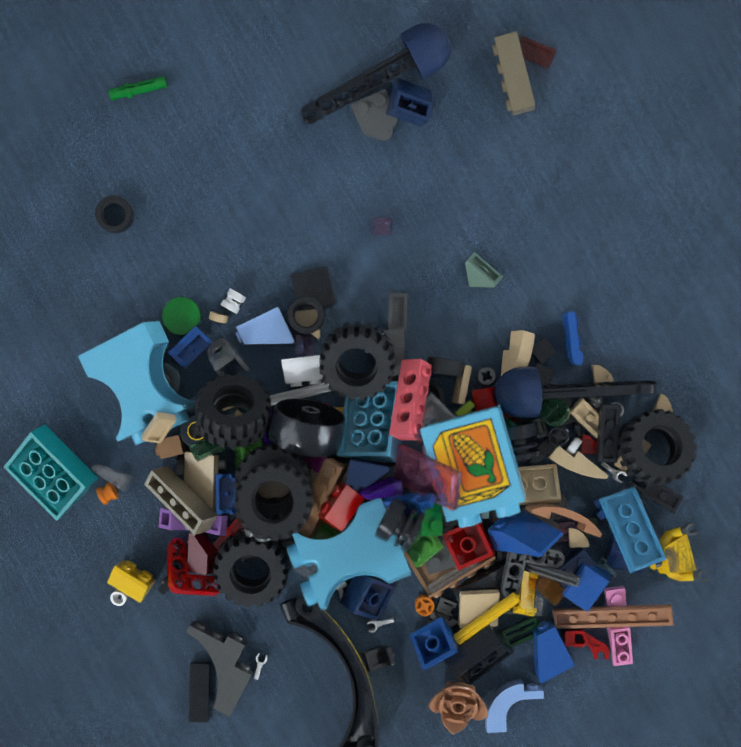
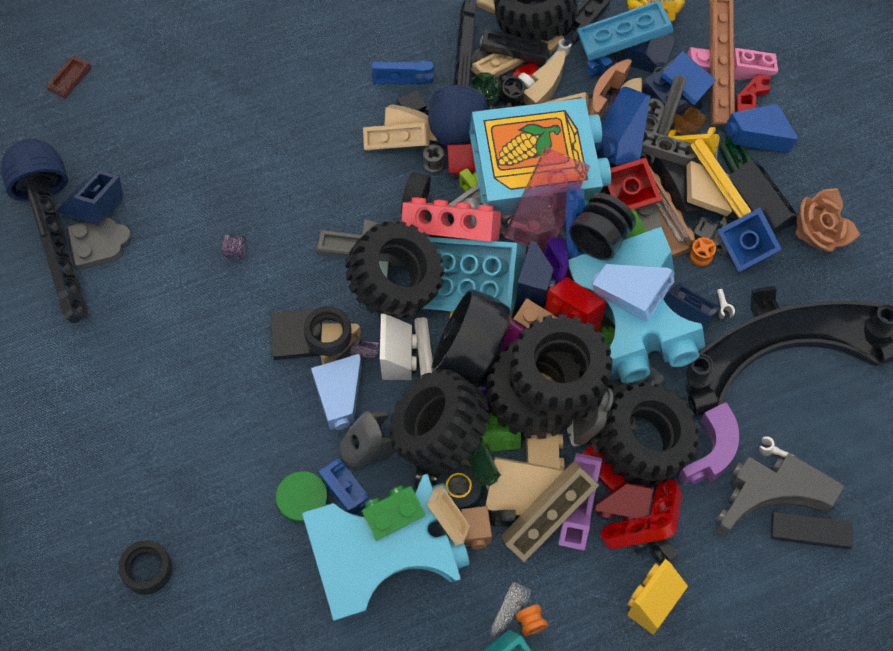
camera: 85 degrees left, 25 degrees down
(114, 598) = (681, 617): white hinge -> none
(153, 386) = (393, 512): none -> green bracket
(218, 317) = (311, 447): tan tile -> none
(225, 493) = (546, 452): blue hinge -> none
(231, 305) = (293, 426): white wheel -> none
(255, 626) = (724, 437): none -> medium lavender arch
(349, 551) = (633, 287): none -> light blue slope
(461, 385) = (442, 184): tan tile -> none
(481, 273) = (312, 154): sand green slope -> none
(500, 342) = (396, 136): none -> tan tile
(504, 698) = (815, 178): light blue arch -> none
(514, 73) = (87, 94): dark tan brick -> none
(600, 374) = (447, 54): tan tile -> none

